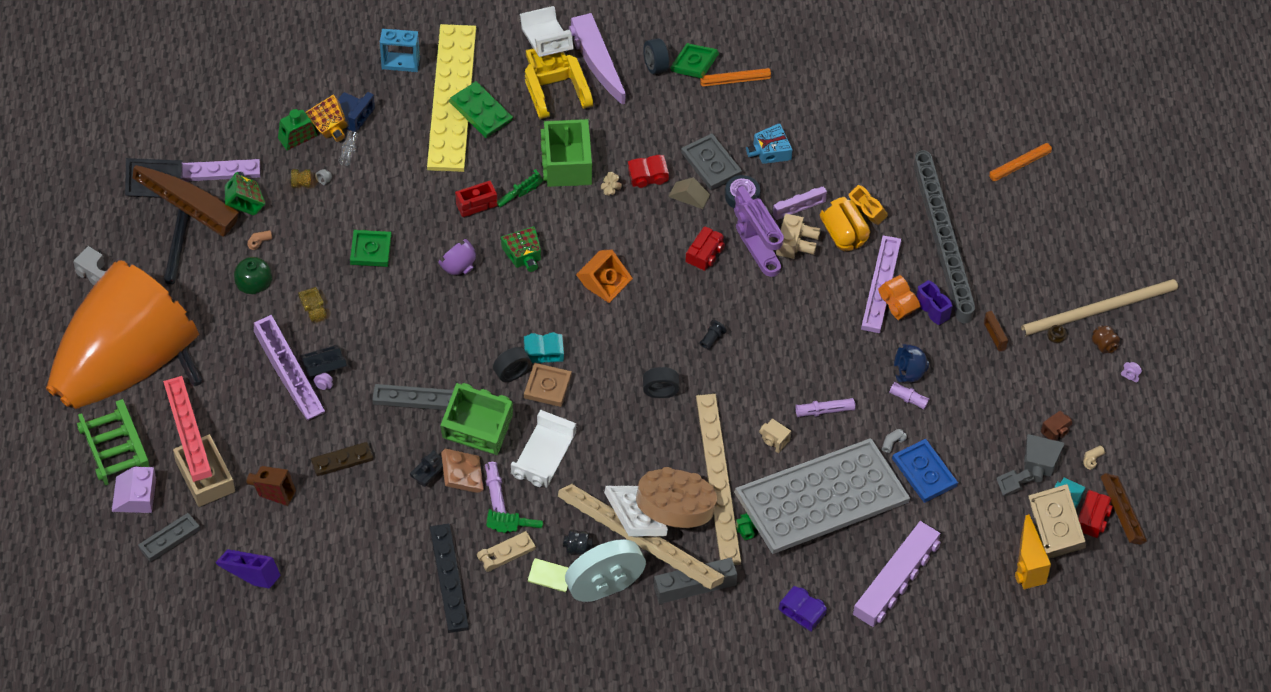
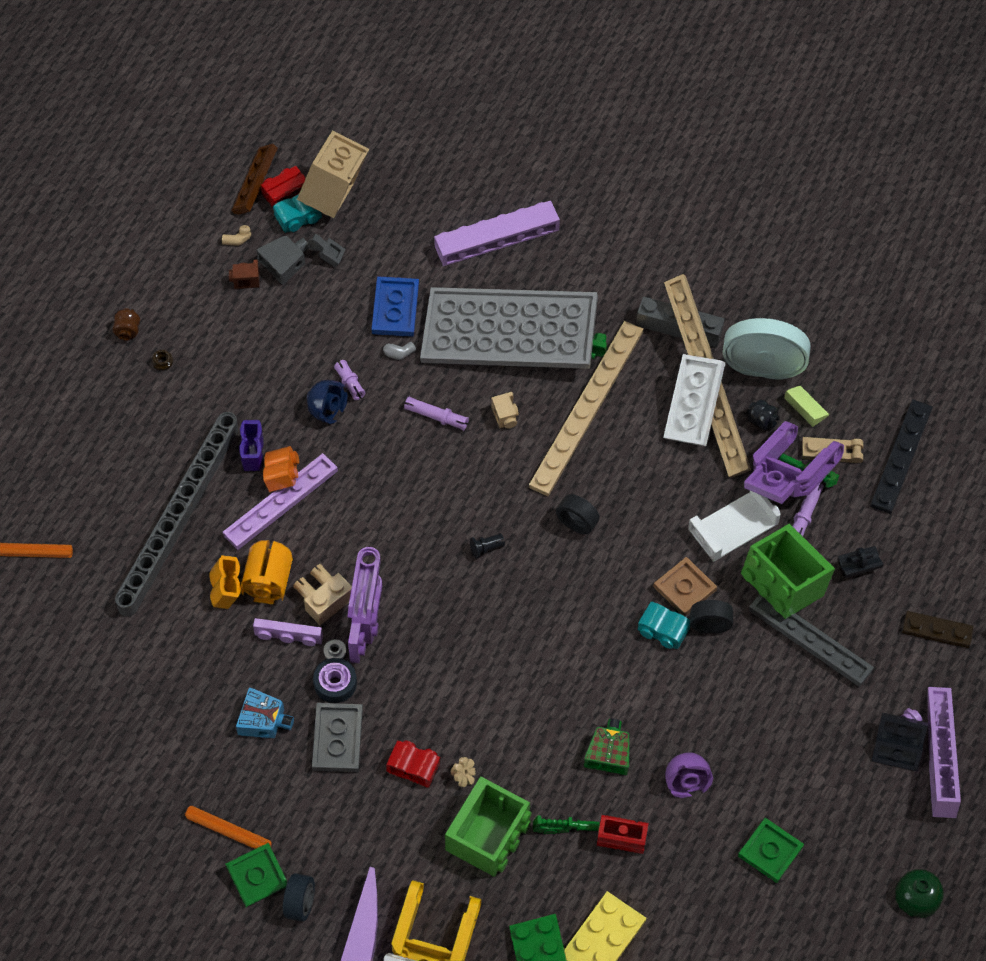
camera: 145 degrees left, 5 degrees up
(257, 238) = (889, 940): nougat arm -> none
(312, 300) = (871, 822): clear yellow plate -> none
(462, 470) = (832, 539): nougat plate -> none
(532, 483) = (780, 480): none -> medium lavender plate
(604, 275) = (548, 670): orange slope -> none
(676, 498) = (631, 379): medium nougat piece -> none
(690, 192) = (389, 715): dark tan slope -> none
(704, 248) = (423, 638): red brick -> none
(802, 608) = (601, 251): dark purple brick -> none
(995, 331) = (217, 390): reddish brown tile -> none
(1033, 561) = (375, 175): light orange slope -> none
(1100, 307) = (98, 361): tan piece -> none
(1131, 371) = (131, 285): lavender plate -> none

